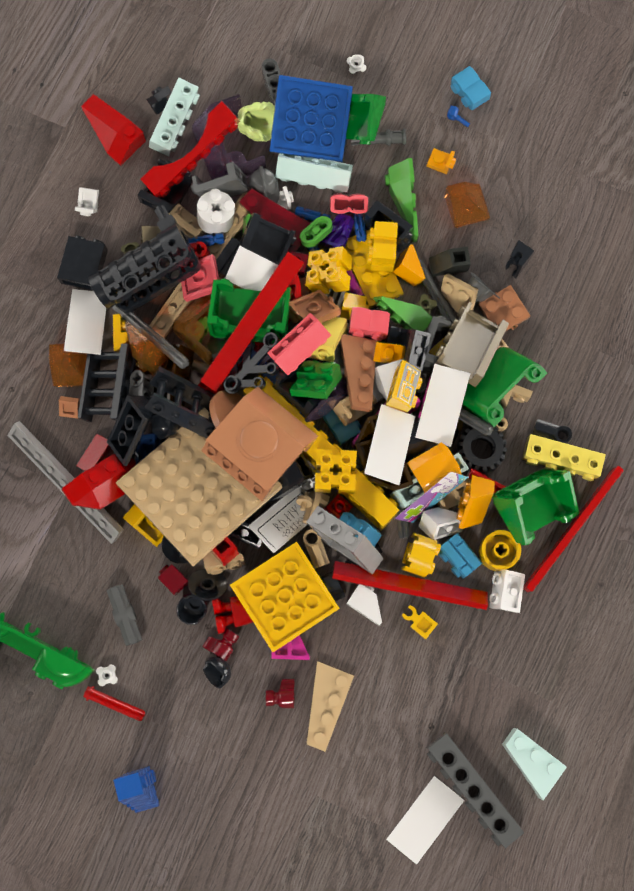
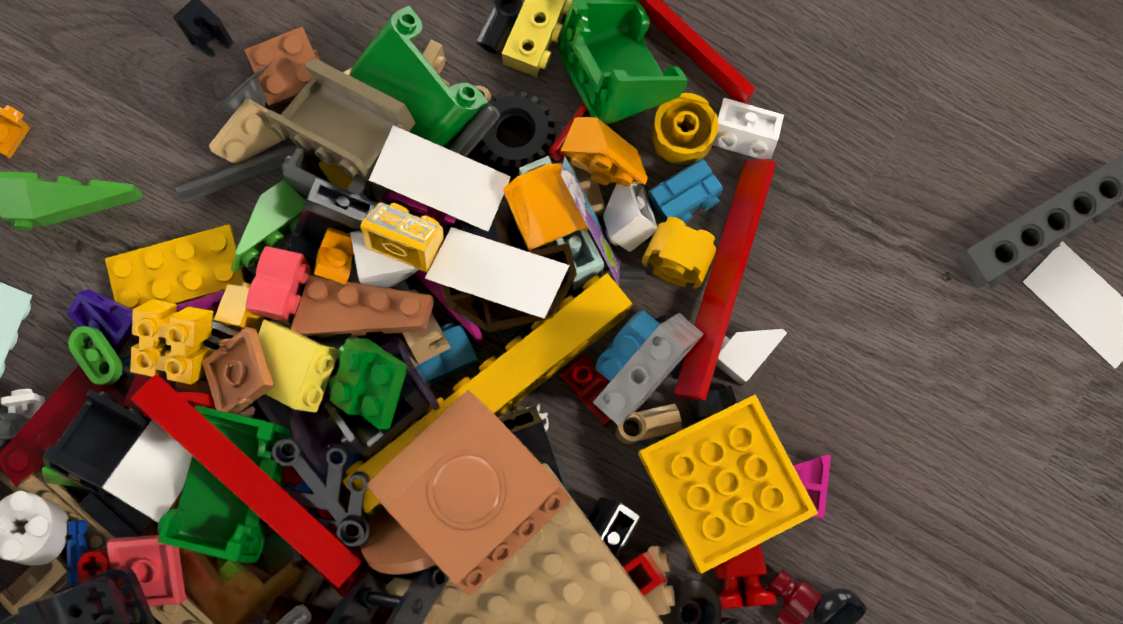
camera: 85 degrees left, 0 degrees up
(280, 521) = (596, 467): white sticker -> none
(284, 697) = (887, 503): dark red piece -> none
(299, 344) = (302, 400): coral brick -> none
(309, 214) = (60, 365): blue axle -> none
(310, 501) = (573, 421): tan hips -> none
(327, 701) = (892, 432): tan wing -> none
(343, 480) = (520, 350): yellow brick -> none
(354, 203) = (53, 303): coral brick -> none
(359, 227) = (100, 281): blue axle -> none
(381, 213) = (103, 226): black panel -> none
(382, 246) = (144, 241): yellow brick -> none
(409, 267) = (185, 208): light orange slope -> none
(421, 623) = (785, 268): yellow plate -> none
(430, 303) = (247, 190): olive plate -> none
(450, 262) = (188, 139): pearl dark grey slope -> none
(466, 203) = (90, 102): clear orange slope -> none
(534, 762) = (1018, 124): light aqua wedge -> none

